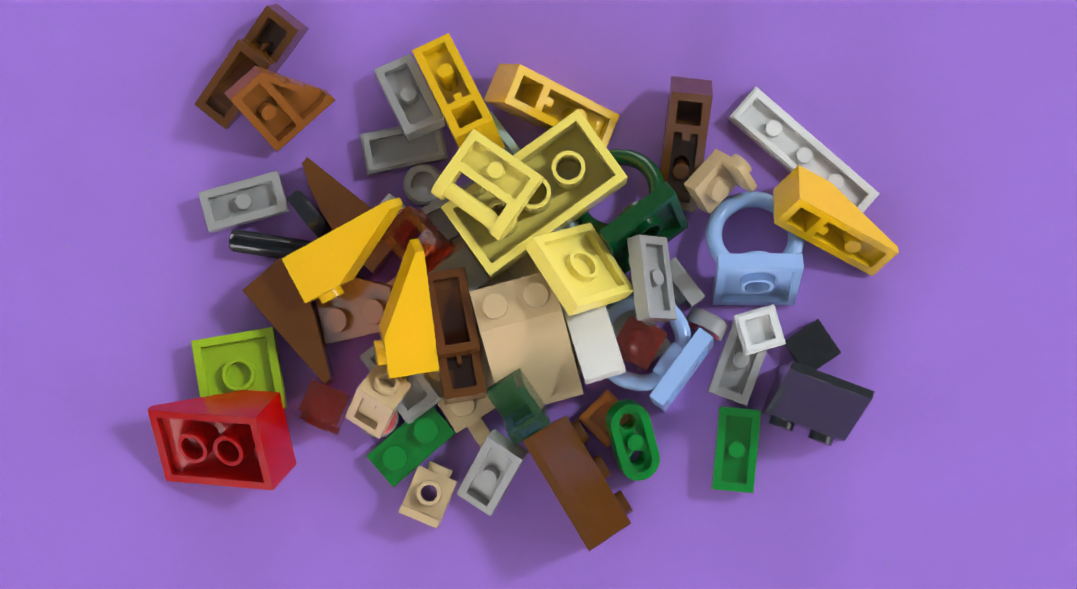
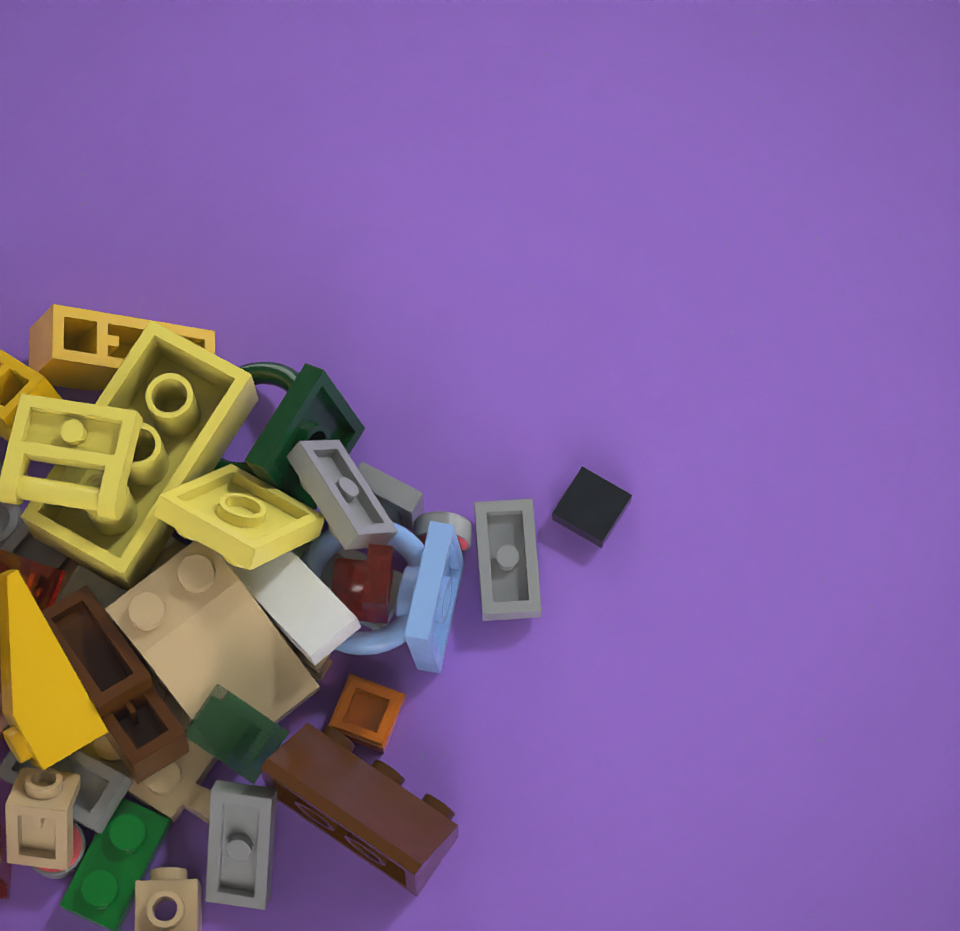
camera: 30 degrees left, 15 degrees down
(632, 436) = (413, 713): green plate -> none
(685, 134) = (310, 314): reddish brown slope -> none
(717, 178) = (374, 348): tan bracket -> none
(736, 449) = (554, 675): green plate -> none
(755, 275) = (472, 441): light blue tile -> none
(759, 330) = (512, 507): white tile -> none
(794, 146) = (471, 283): white tile -> none
(815, 402) = (626, 555): black slope -> none
(830, 221) = (542, 338): yellow slope -> none

